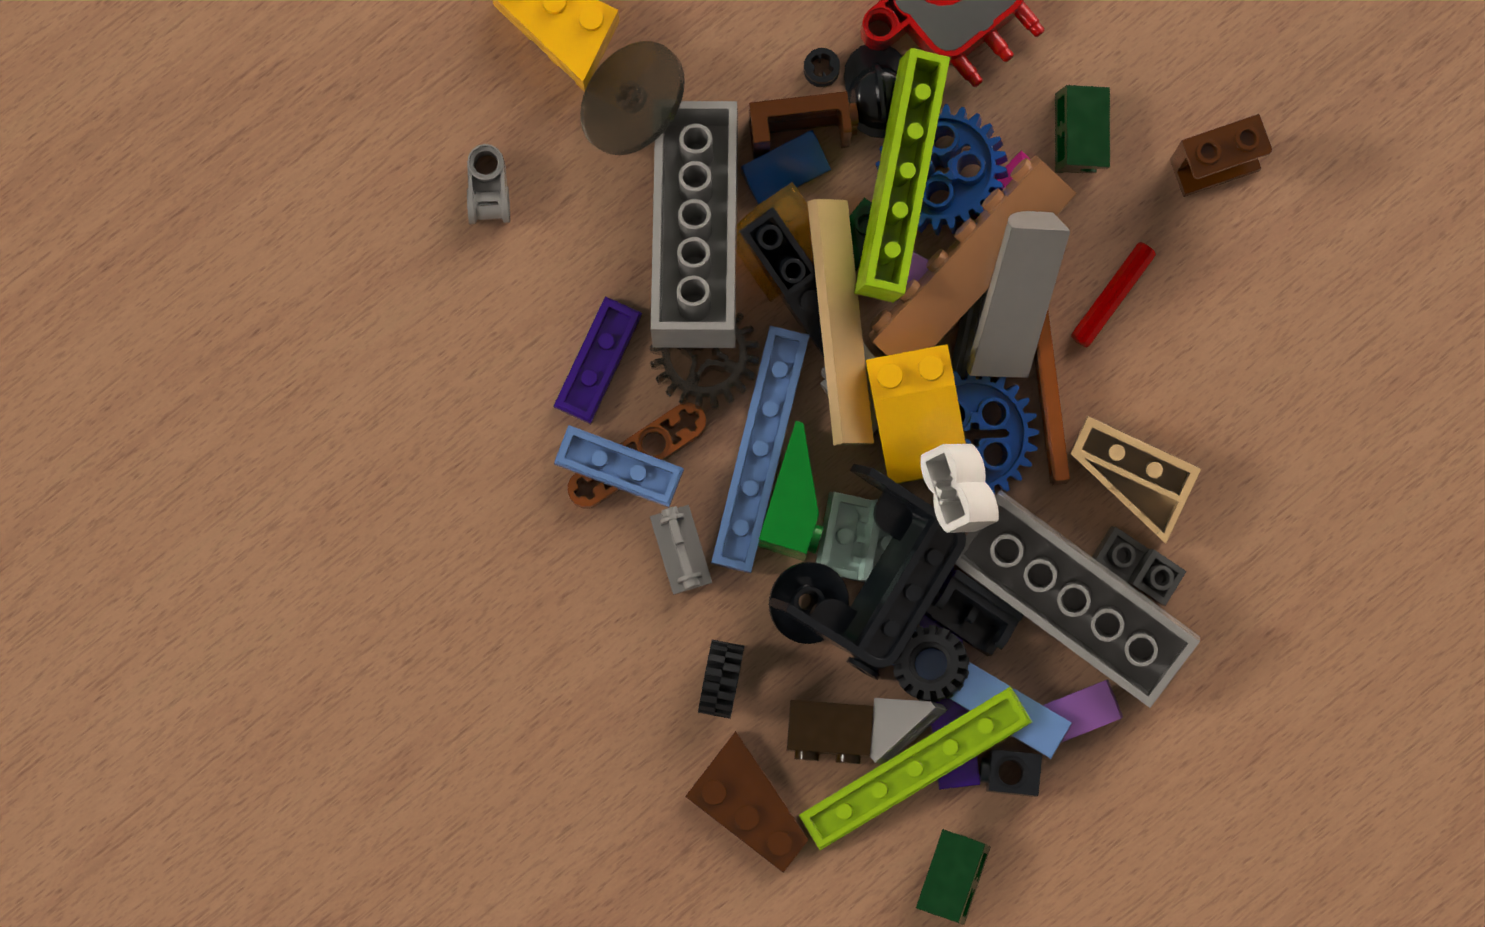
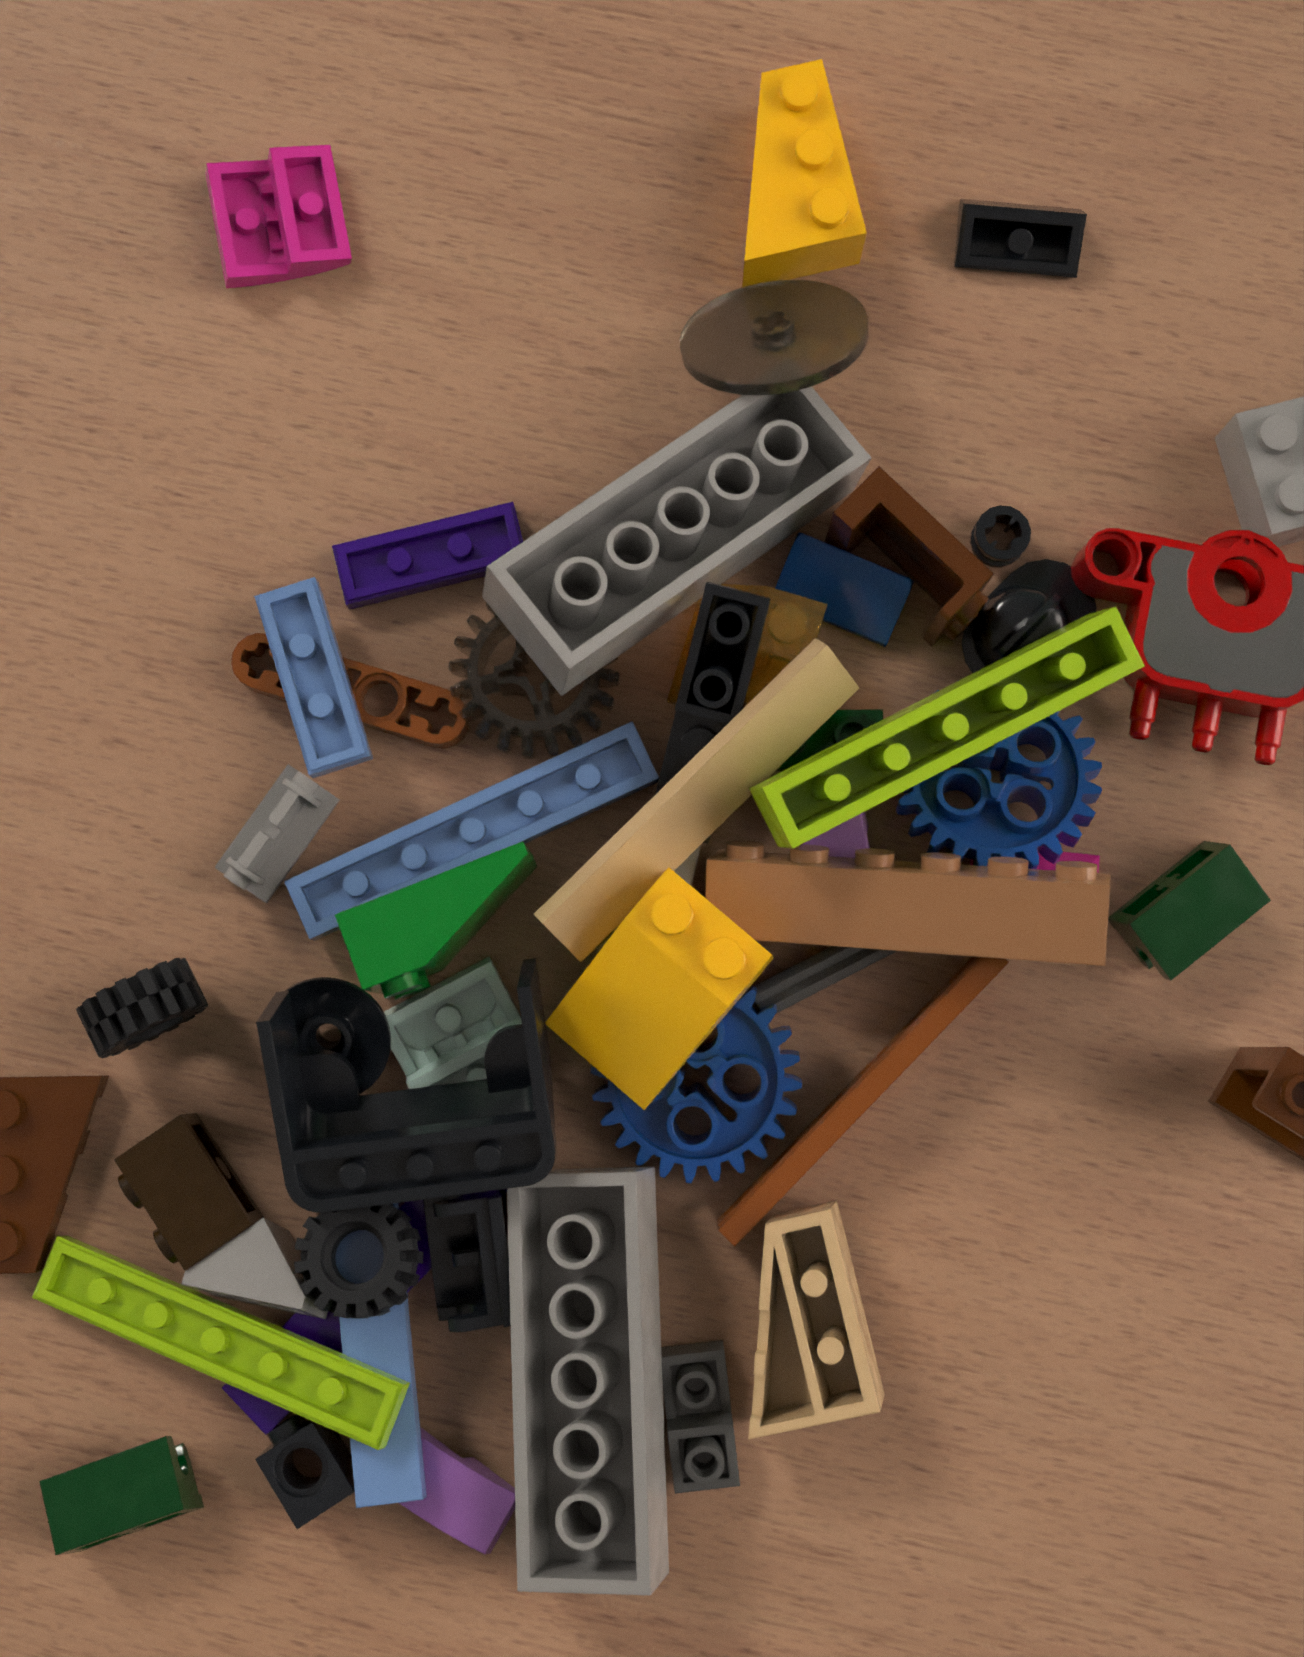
camera: 60 degrees right, 0 degrees up
(350, 297) = (278, 216): none -> dark pink slope
(487, 189) = (526, 271): light grey piece -> none
(959, 488) = (597, 1119): white brick -> none
(1018, 295) = (915, 994): light grey brick -> none
(1113, 294) = (1015, 1112): red axle -> none

